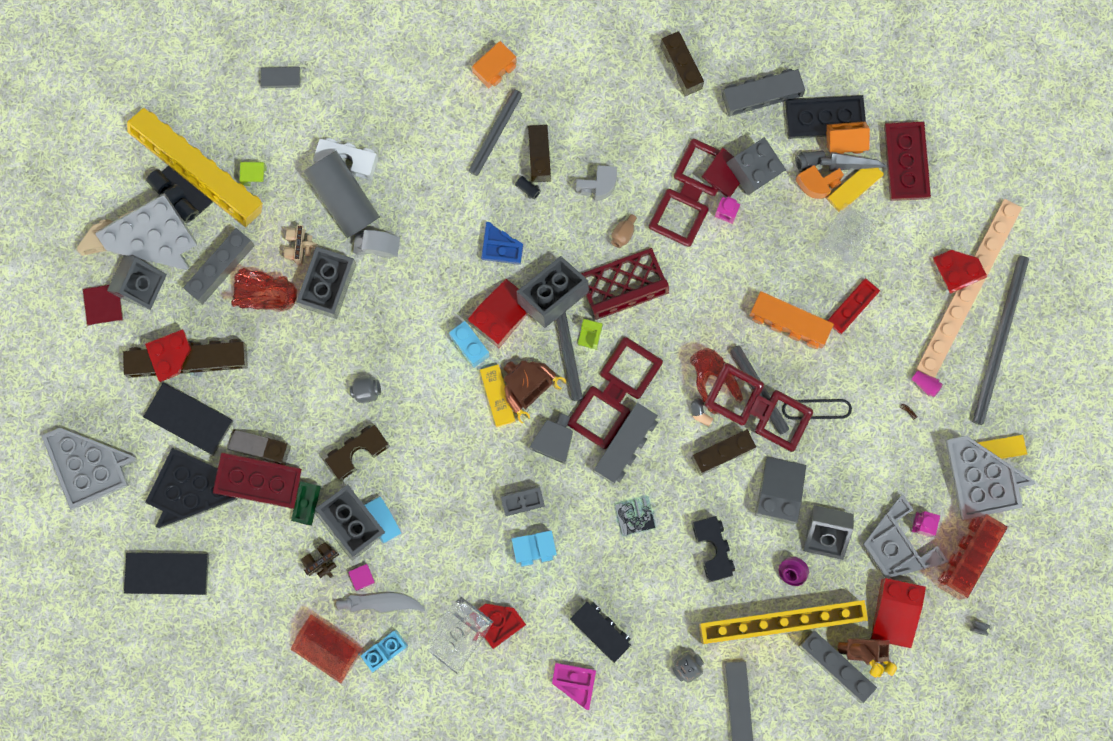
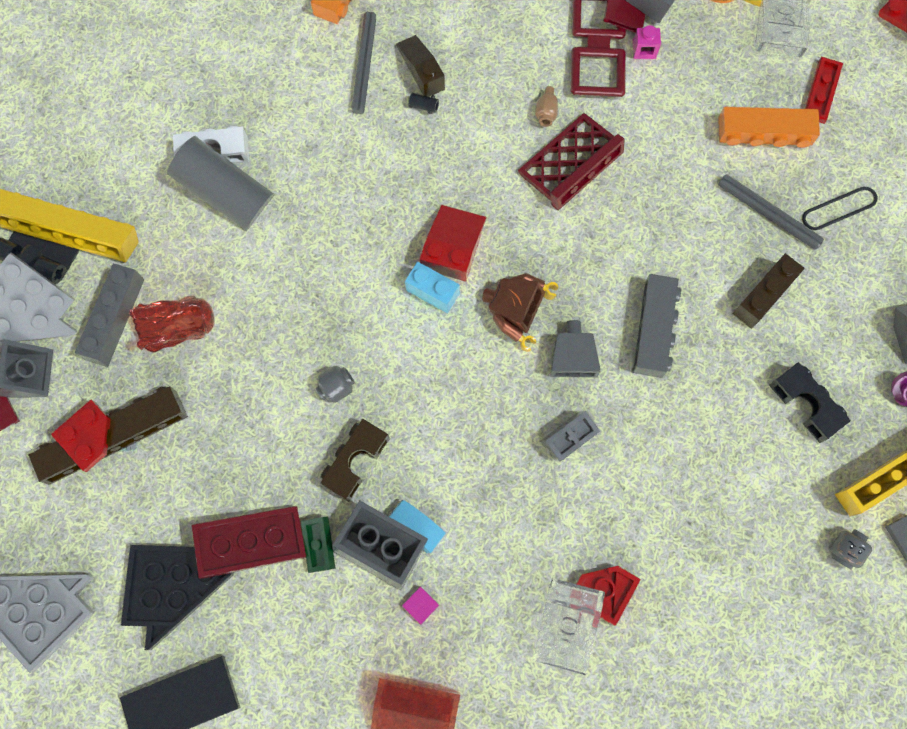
camera: 20 degrees left, 5 degrees down
(188, 418) = (138, 503): black tile -> none
(252, 172) = (109, 200): lime panel -> none
(259, 447) = (236, 500): slope -> none
(280, 77) = (106, 94): dark grey tile -> none
(298, 236) = (190, 248): tan hips -> none
(312, 566) = (356, 617): dark brown hips -> none
(326, 282) = (241, 284): dark grey brick -> none
(376, 243) = (282, 218): light grey brick -> none
(381, 602) = (455, 626): light grey sword -> none
(384, 651) = (485, 684): medium azure slope -> none
(495, 392) = (487, 332): yellow tile -> none
(500, 246) = (421, 173): blue wing -> none
(534, 548) = (608, 484): medium azure brick -> none
(552, 292) = (501, 193): dark grey brick -> none
(569, 358) = (545, 255): dark grey axle -> none
(575, 683) = (730, 625): dark pink wing -> none
(590, 334) = (561, 224): lime panel -> none
(601, 631) = (731, 550): black brick -> none
(602, 187) = (501, 71): light grey brick -> none
(615, 392) = (616, 277): dark red bar -> none
(635, 516) = (703, 402): piece -> none
(698, 412) = (718, 262): arm -> none
(708, 363) = (708, 202): clear red hair -> none
(759, 407) = (785, 224): dark red bar -> none
(781, 490) = (851, 309): dark grey slope -> none

